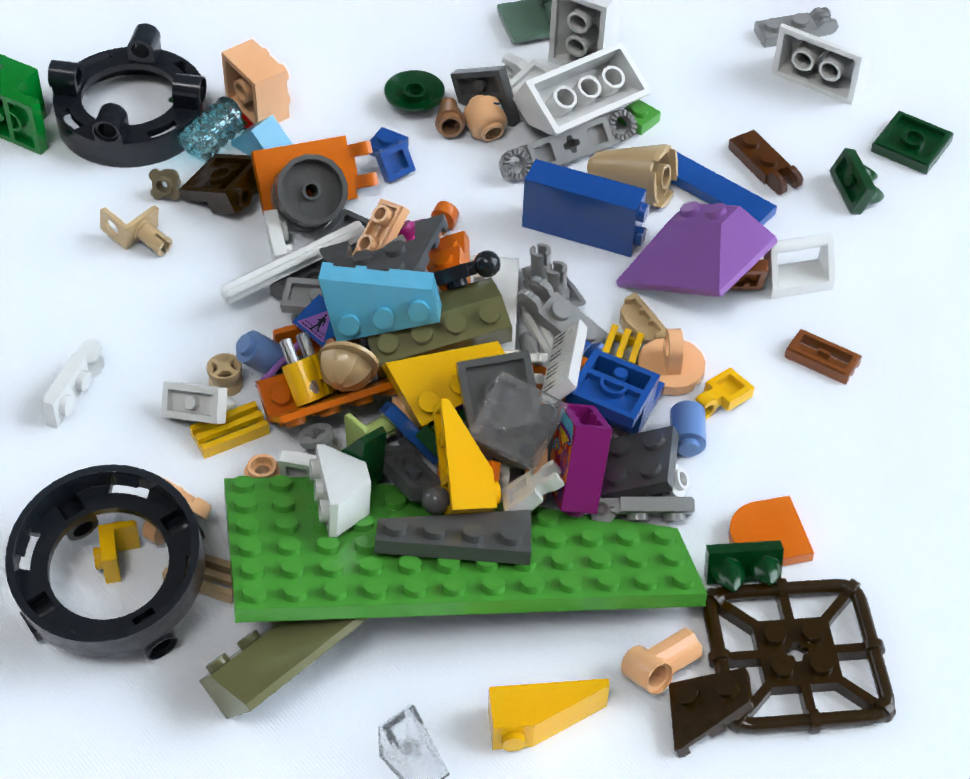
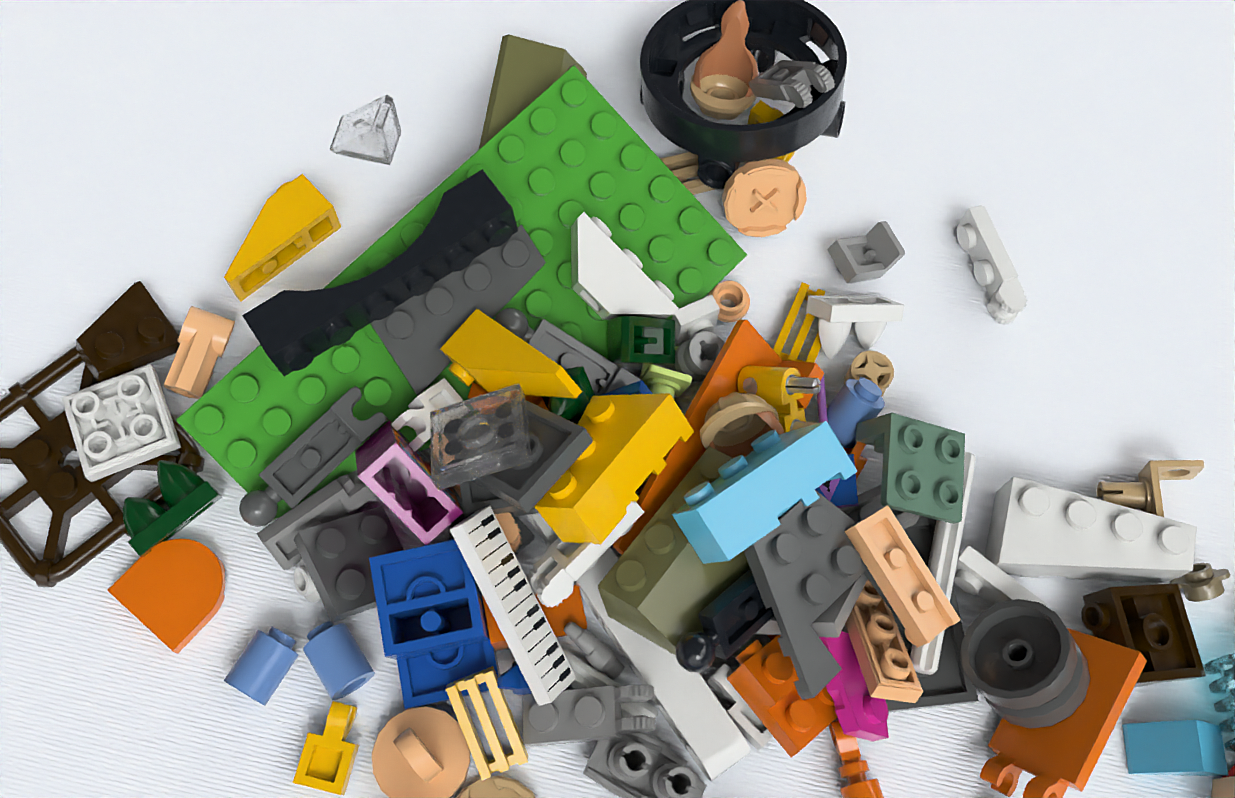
camera: 140 degrees right, 20 degrees up
(90, 516) = (792, 82): none -> light grey hinge
(109, 590) = (725, 69): none -> piece
(143, 438) = (867, 255): none -> light grey bracket
(207, 232) = (1079, 537): none -> white wedge
(250, 295) = (919, 465): none -> sand green bracket
(337, 240) = (902, 576): none -> light nougat hinge
(577, 558) = (304, 324): none -> black arch
(613, 520) = (310, 459): none -> dark grey plate
(736, 452) = (263, 665): none -> medium blue brick
(748, 637) = (120, 423): none -> white tile

